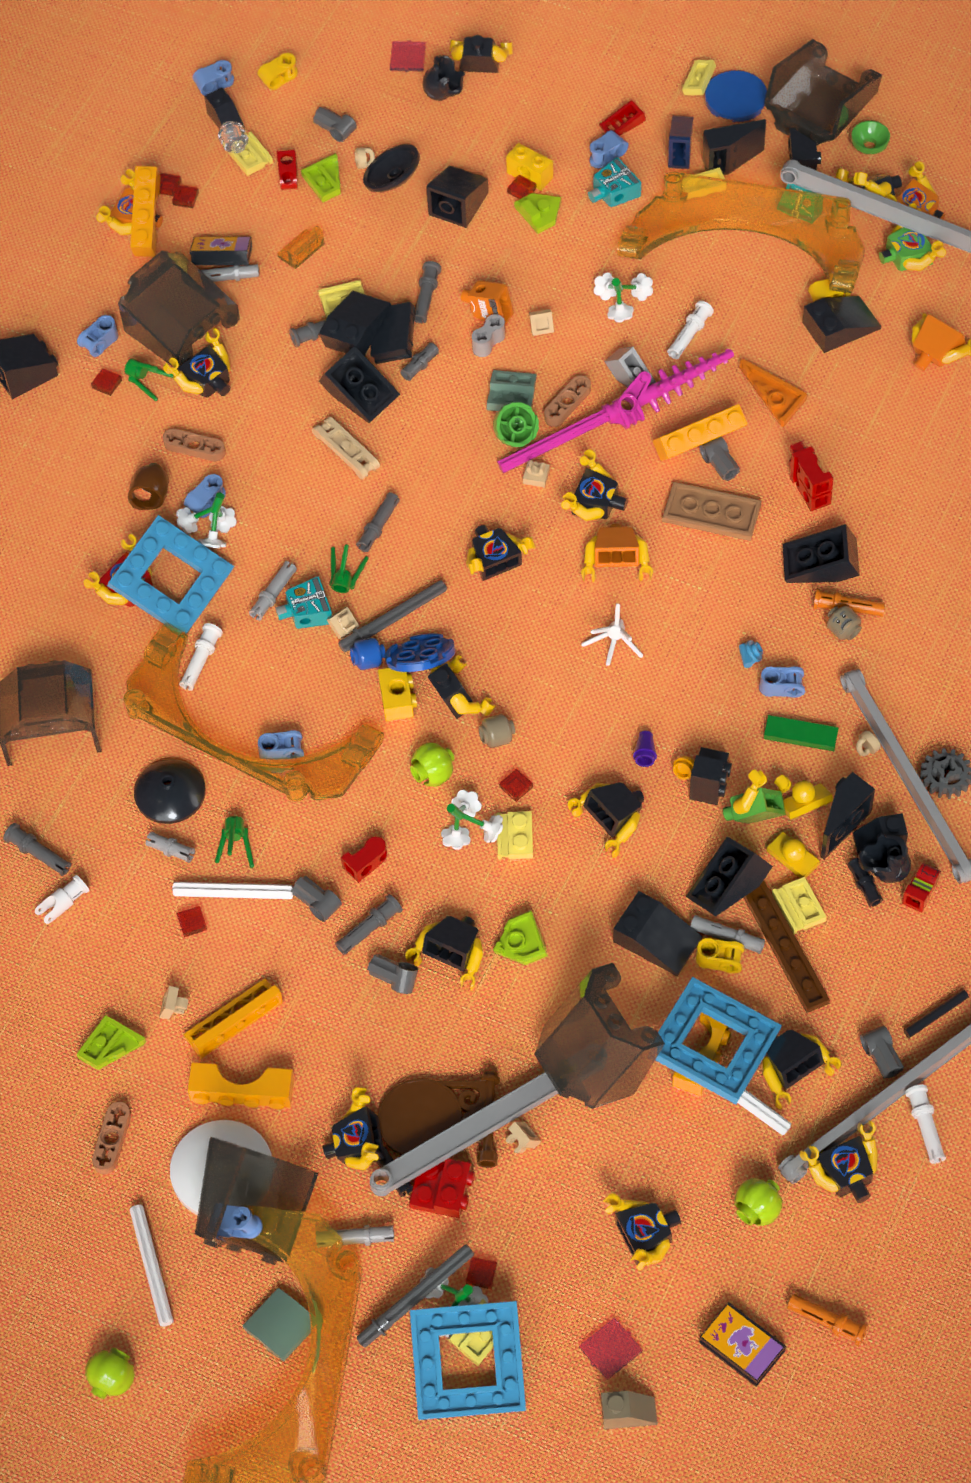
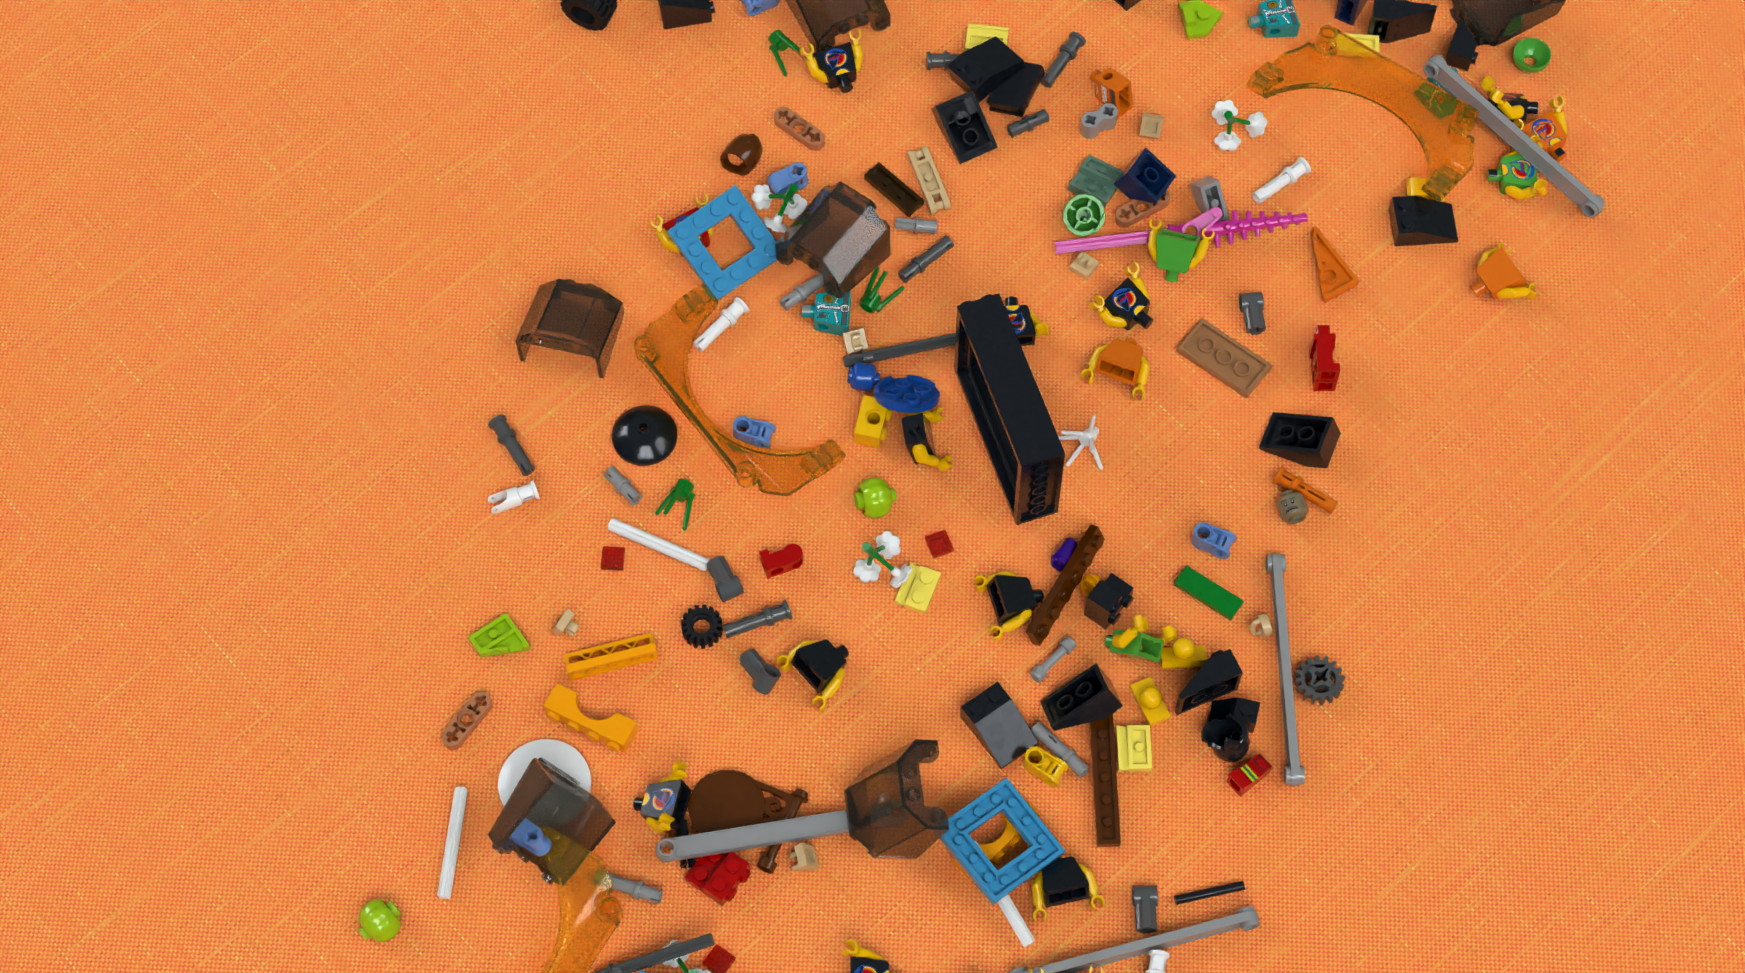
camera: 20 degrees right, 5 degrees up
(106, 382) = (749, 42): clear red tile -> none
(279, 1324) = (532, 936): sand green slope -> none
(284, 526) = (837, 238): none -> clear smoke windscreen
(315, 468) = (894, 189): none -> dark brown plate
(317, 965) = (701, 614): none -> black tyre
(354, 493) = (916, 225): none -> light grey axle
(487, 555) = (1008, 409): none -> black door
(496, 731) = (943, 489): dark tan head -> none
(521, 940) = (881, 685): lime plate -> none
(558, 371) = (1145, 178): none -> dark blue slope
(622, 425) = (1176, 250): none -> bright green torso
(659, 777) = (1065, 585): none -> reddish brown plate
(686, 836) = (1039, 672): none -> light grey bar
(699, 432) = (1244, 282): light orange arch -> none
(750, 653) = (1197, 503): dark azure plate -> none
(865, 883) = (1201, 752): black pin -> none

